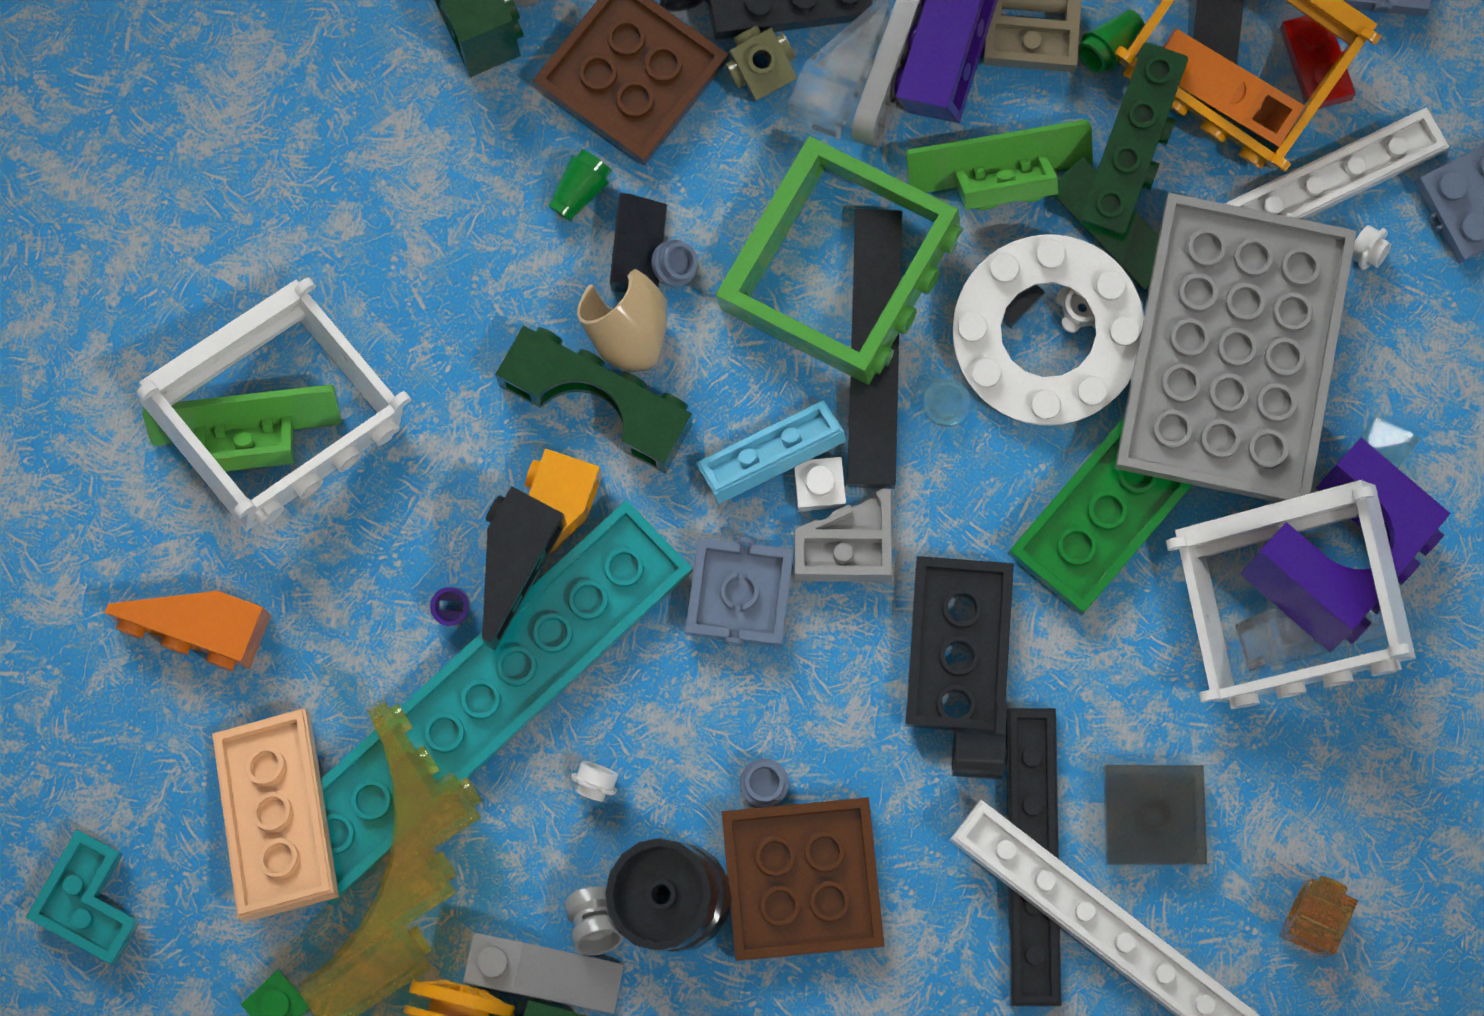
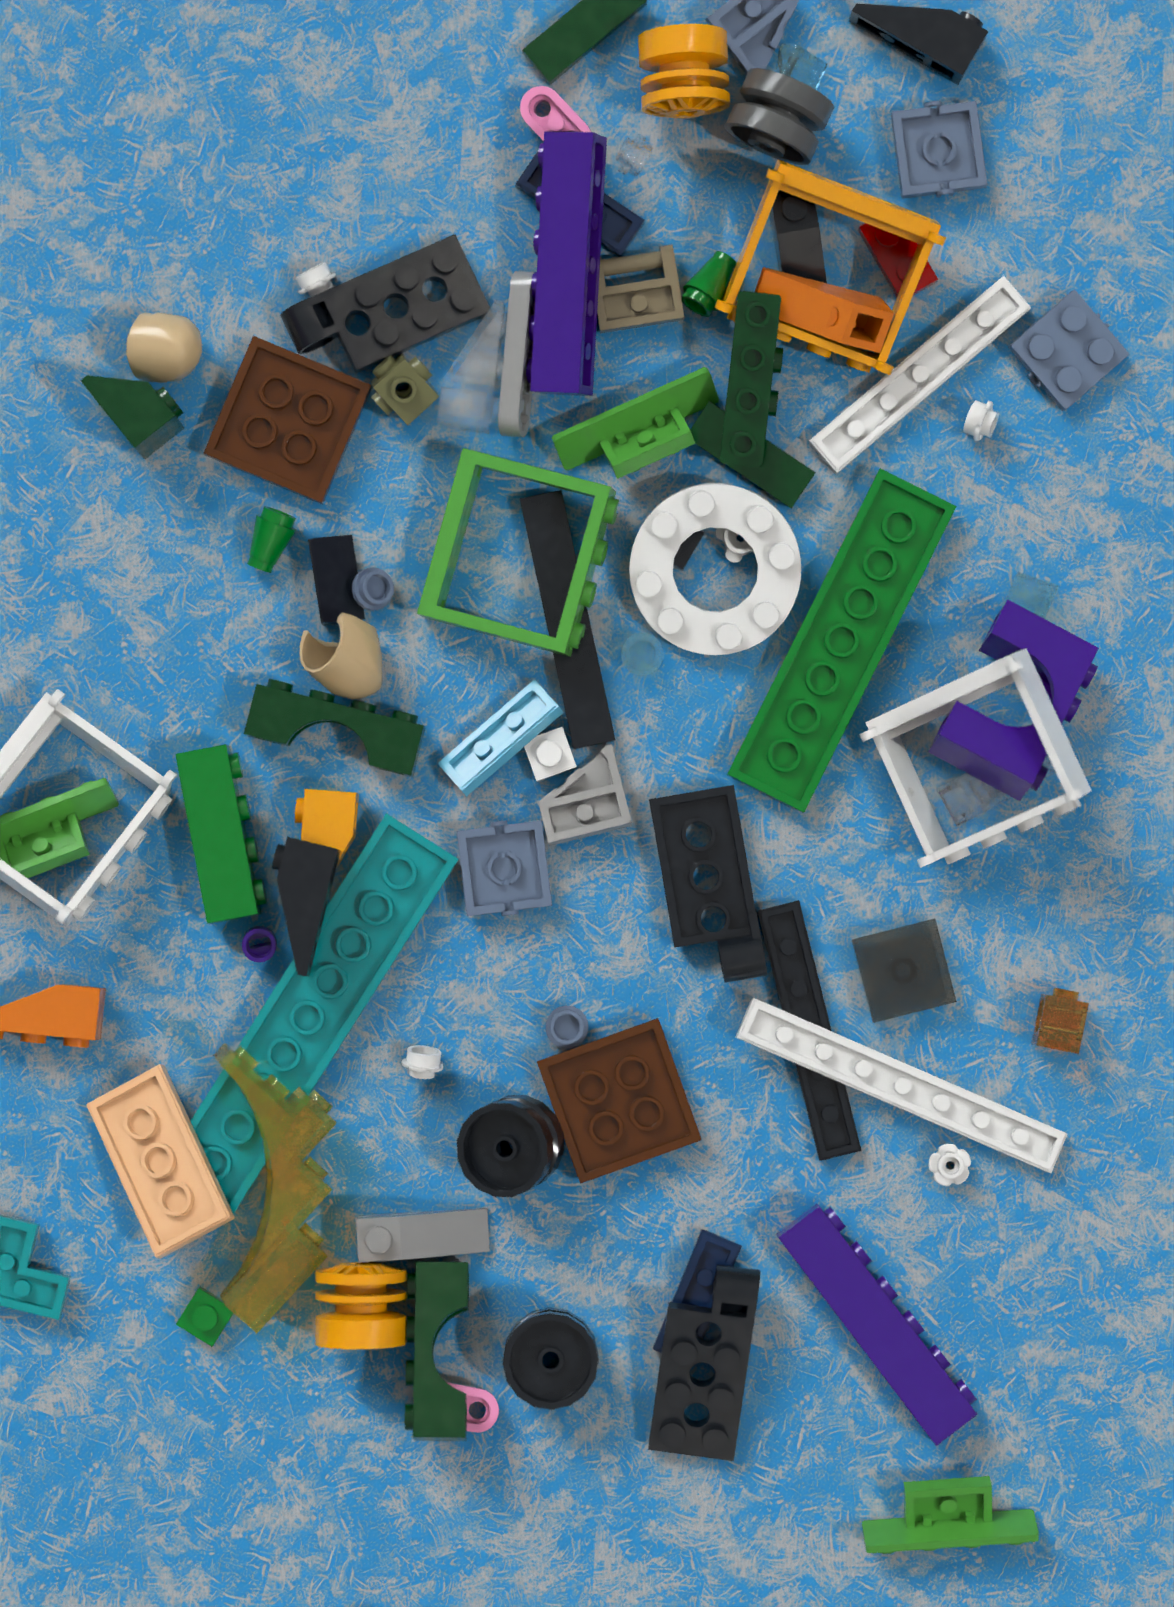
camera: 15 degrees left, 10 degrees up
(439, 478) = (219, 833): none -> green brick
(593, 928) = (453, 1186): light grey wheel -> none
(1236, 349) = (882, 547): light grey plate -> none

